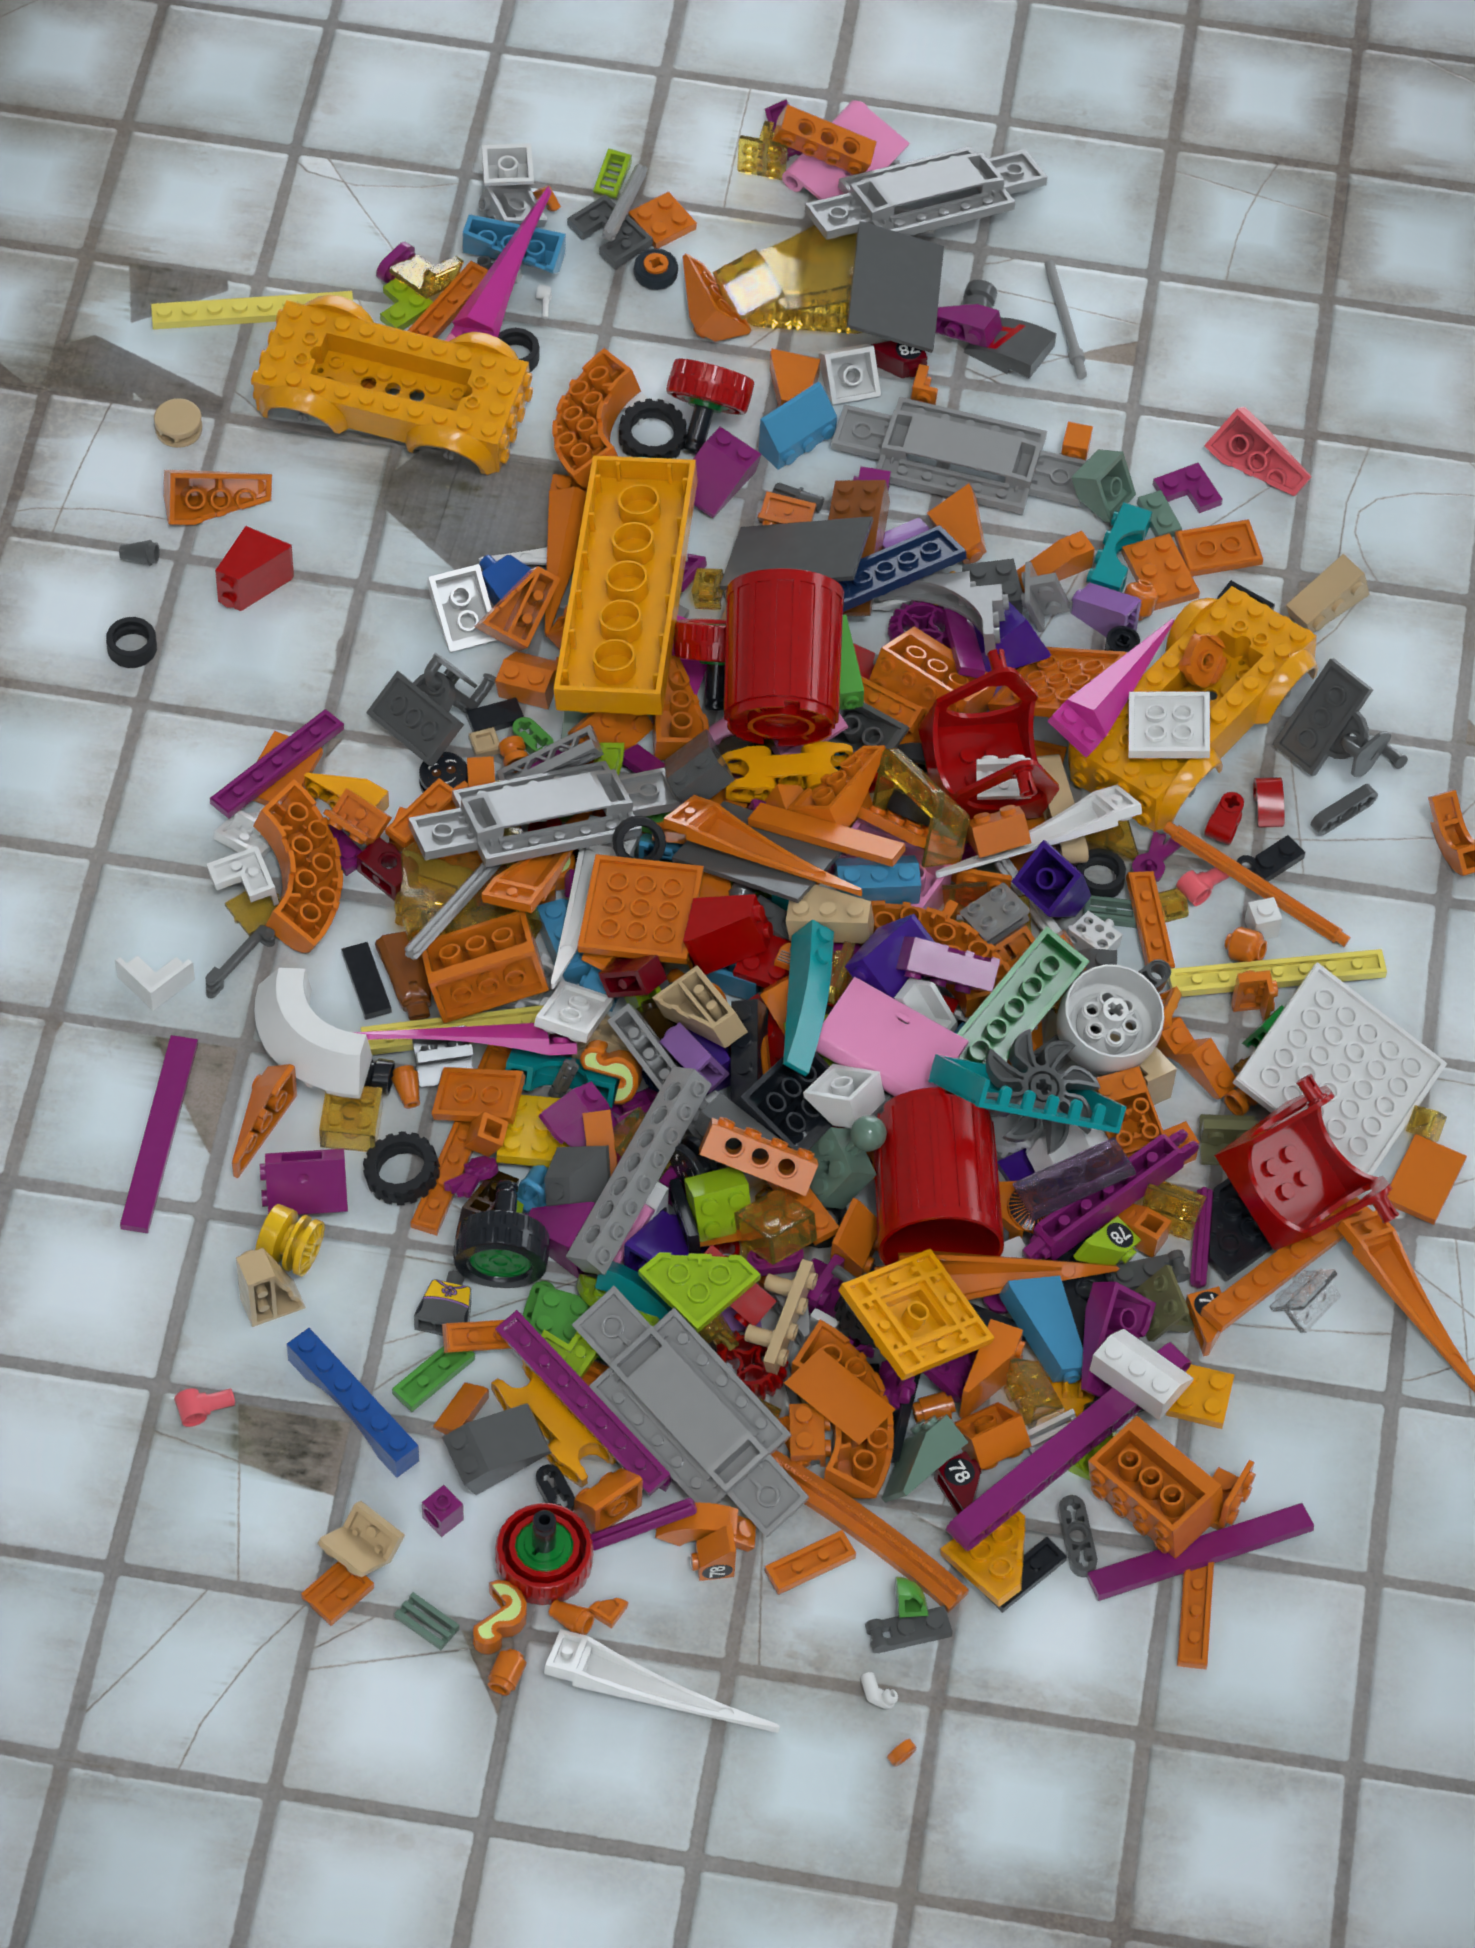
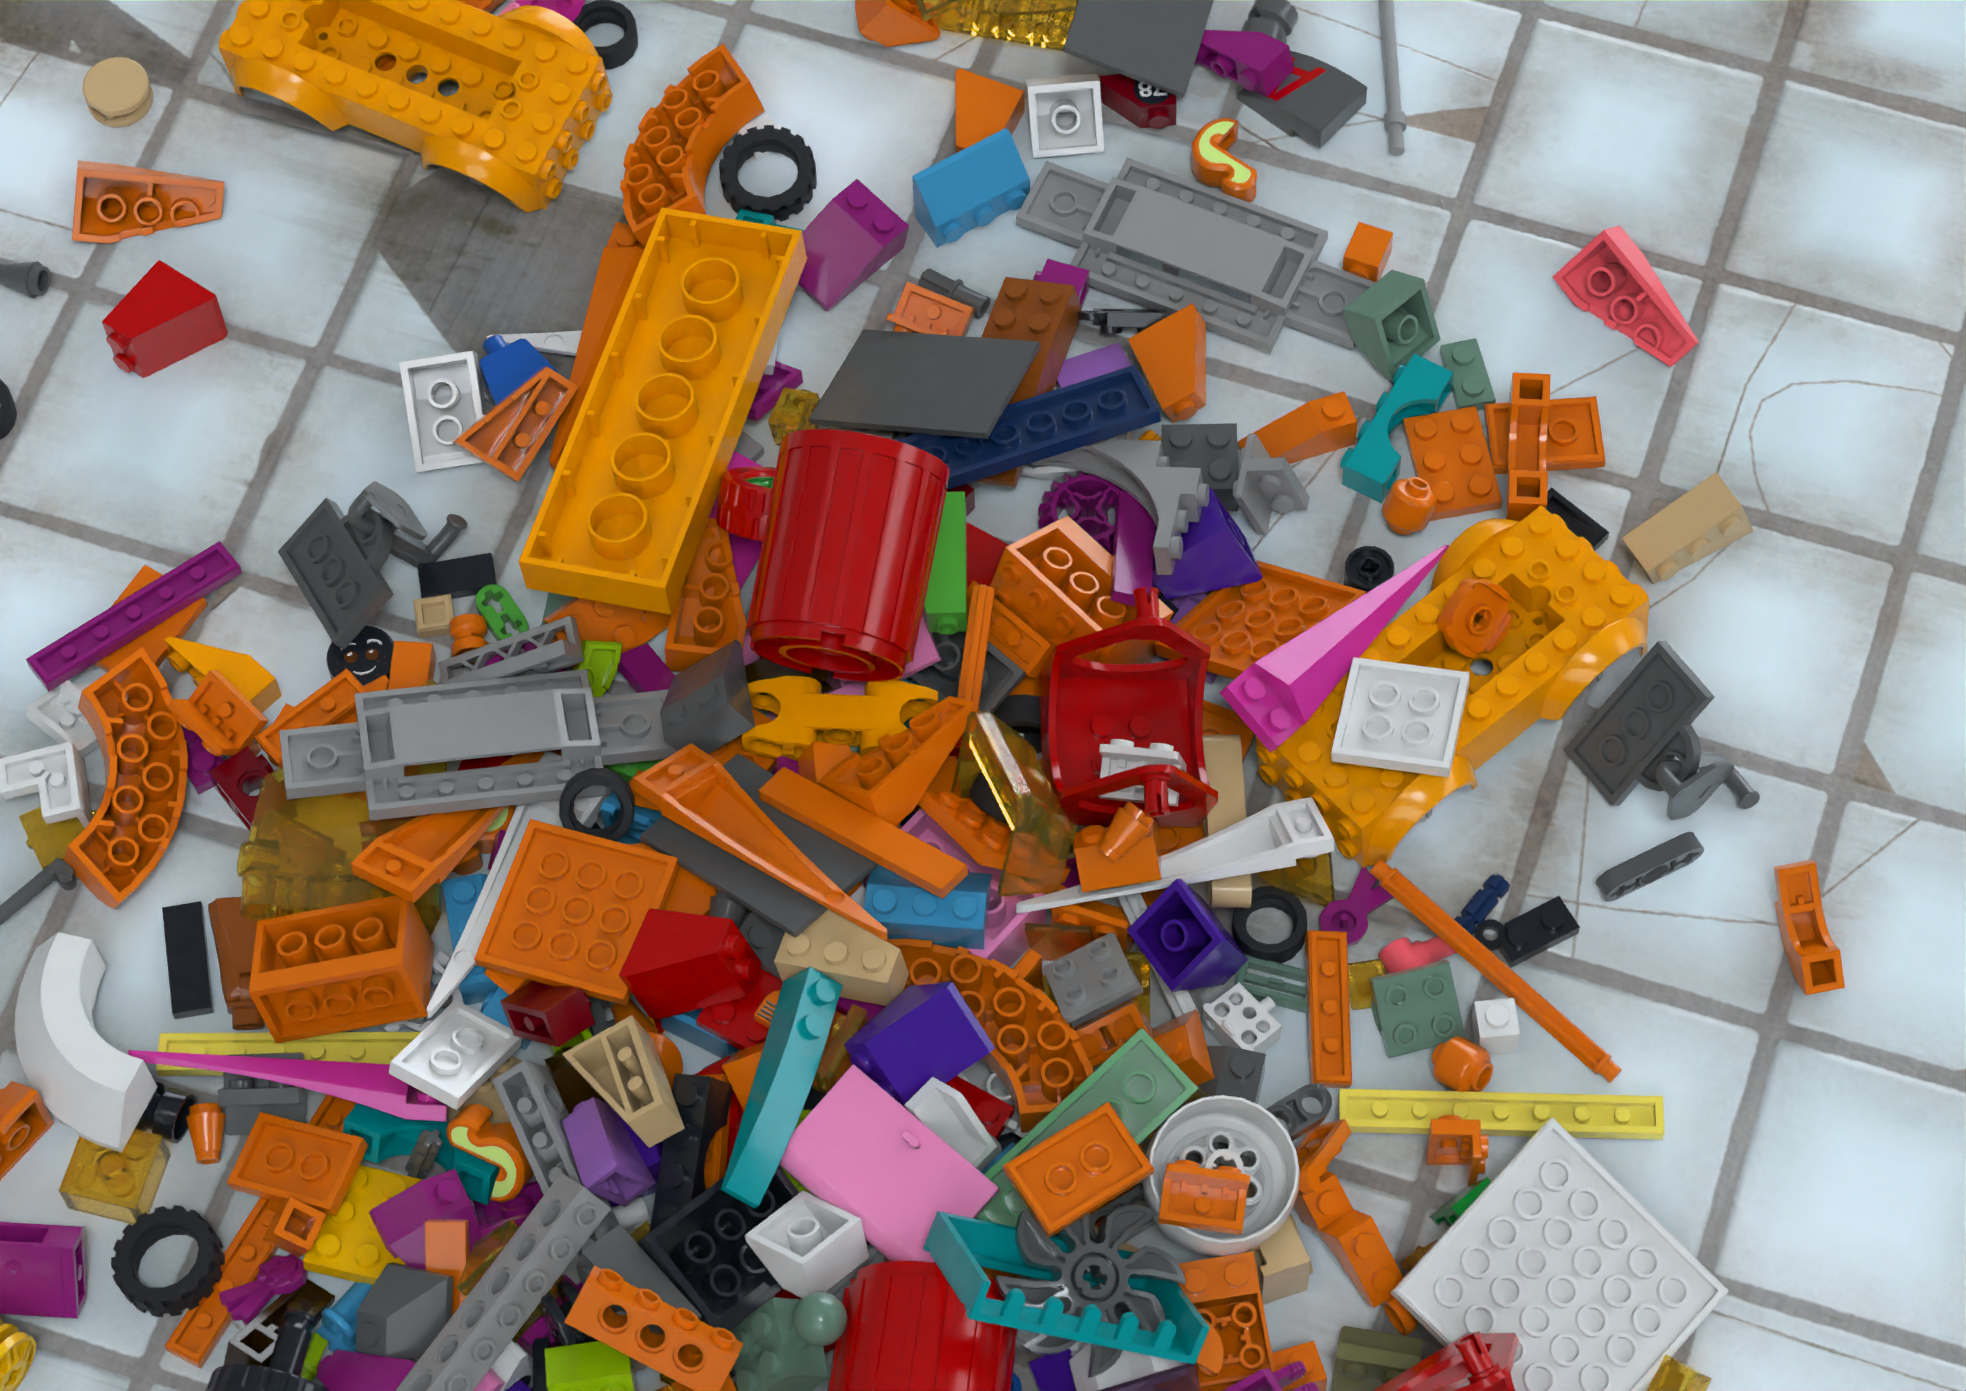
camera: 15 degrees right, 5 degrees up
(449, 910) = (303, 882): light grey axle -> none
(528, 679) = (502, 522): orange slope -> none
(709, 391) = (851, 127): red wheel -> none
(872, 709) = (976, 643): none -> orange axle
(912, 503) = (1113, 320): none -> black hinge
(921, 387) = (1162, 146): orange bracket -> none
(947, 965) = (989, 1065): wedge -> none
(962, 397) = (1218, 167): none -> orange animal
(1006, 810) = (1125, 831): none -> orange cone
(1021, 1020) = (1078, 1169): none -> orange tile
(1105, 608) = (1358, 514): medium lavender slope -> none
(1107, 1026) = (1203, 1197): none -> orange bracket
(1126, 1132) = (1212, 1352): none -> orange tile
(1190, 482) = (1521, 329): magenta plate -> none
(1208, 913) = (1416, 1008): none -> sand green plate
(1209, 544) = (1527, 444): none -> orange arch
(1226, 818) = (1468, 865): red piece -> none
(1239, 843) = (1483, 902): none -> dark blue axle
(1270, 801) = (1541, 840): red panel -> none

